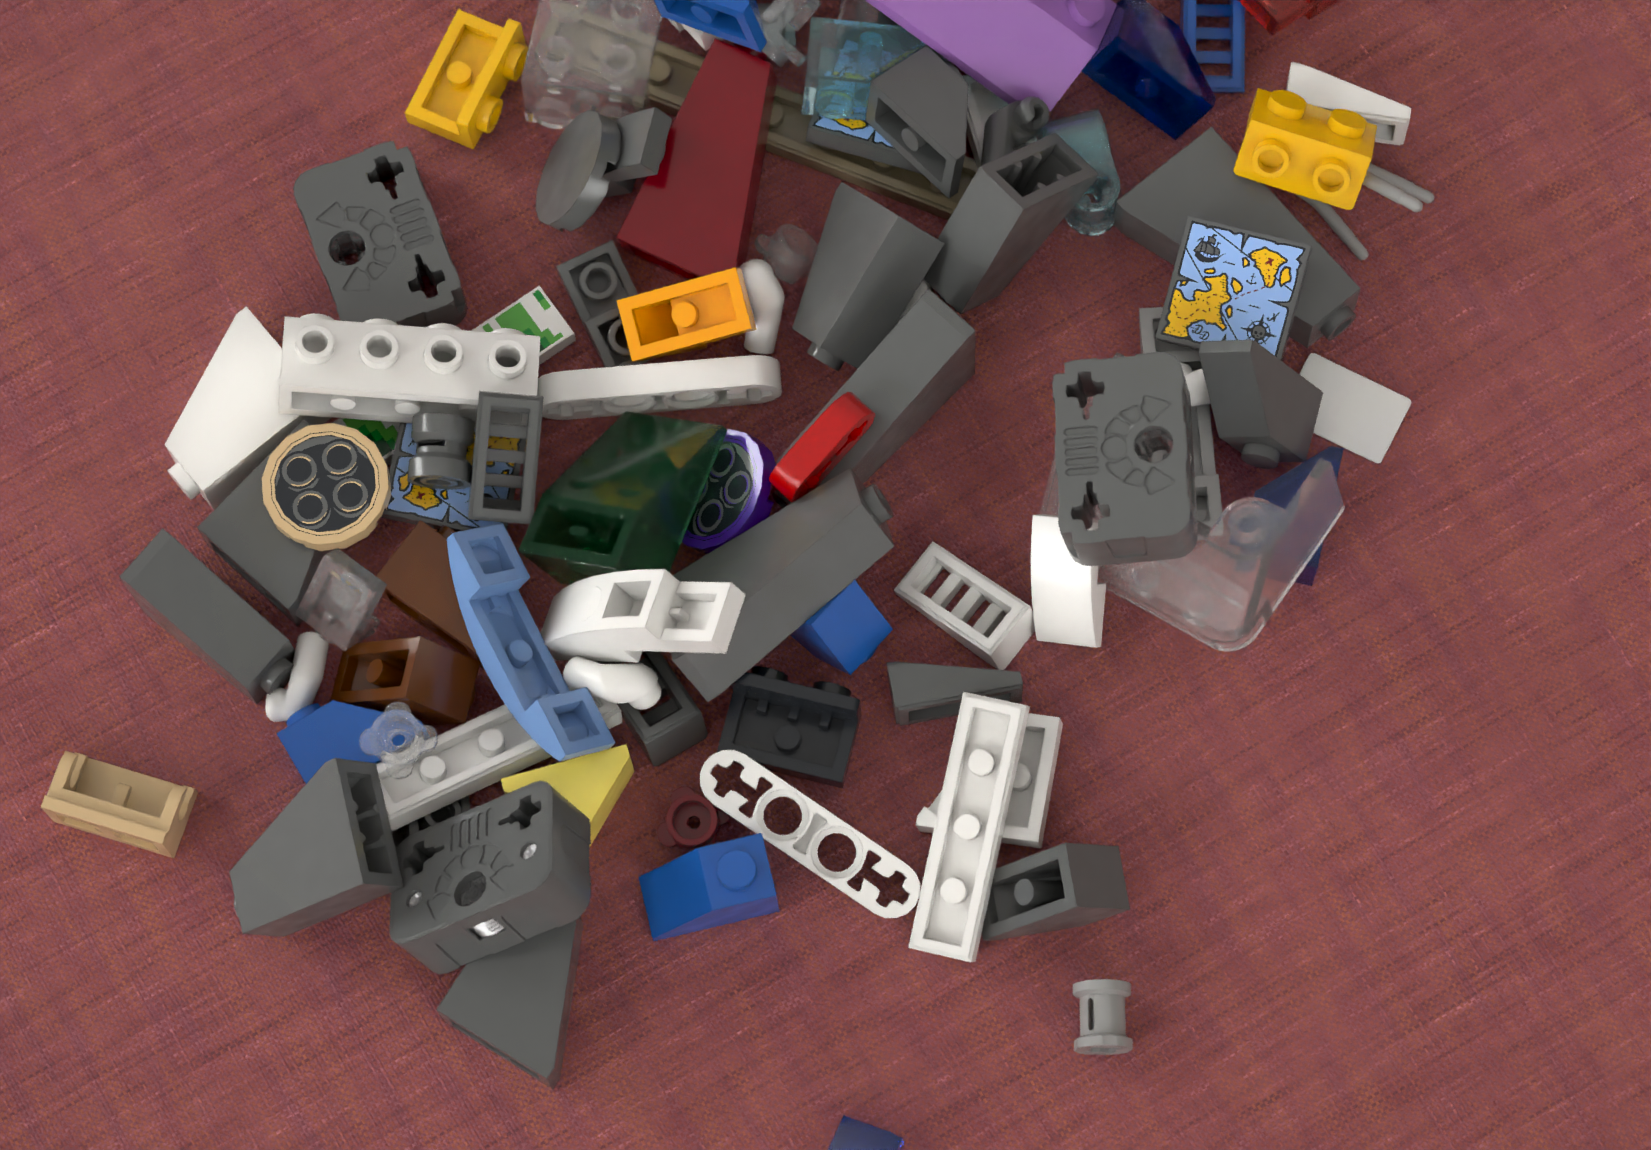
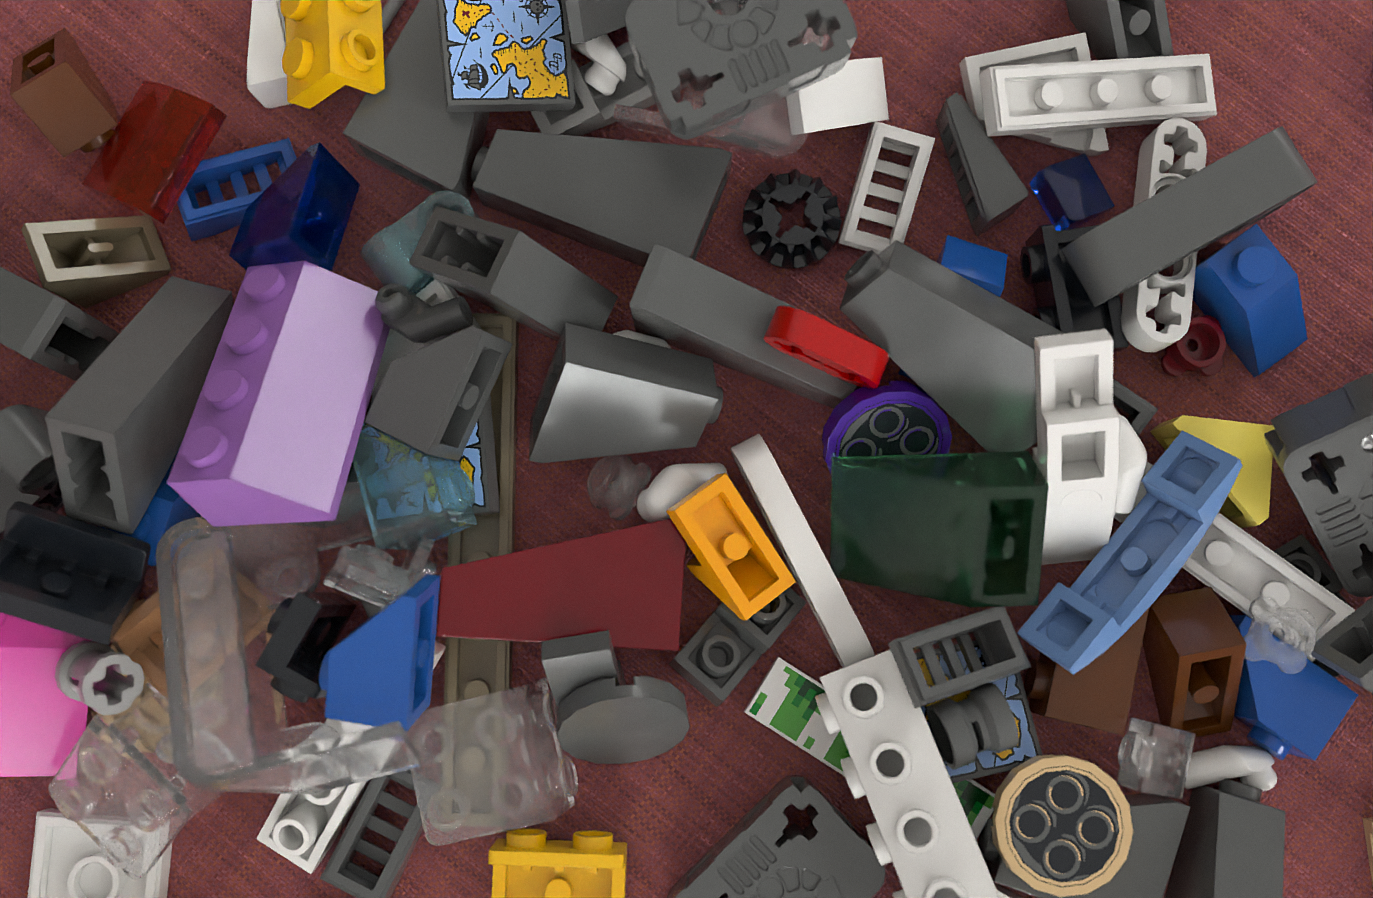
camera: 115 degrees left, 10 degrees up
(807, 831) = (1189, 216): none -> dark grey beam
(889, 777) = (1071, 192): none -> clear blue slope
(968, 535) = (799, 245): none -> black gear
(1075, 317) = (605, 189): none -> dark grey slope

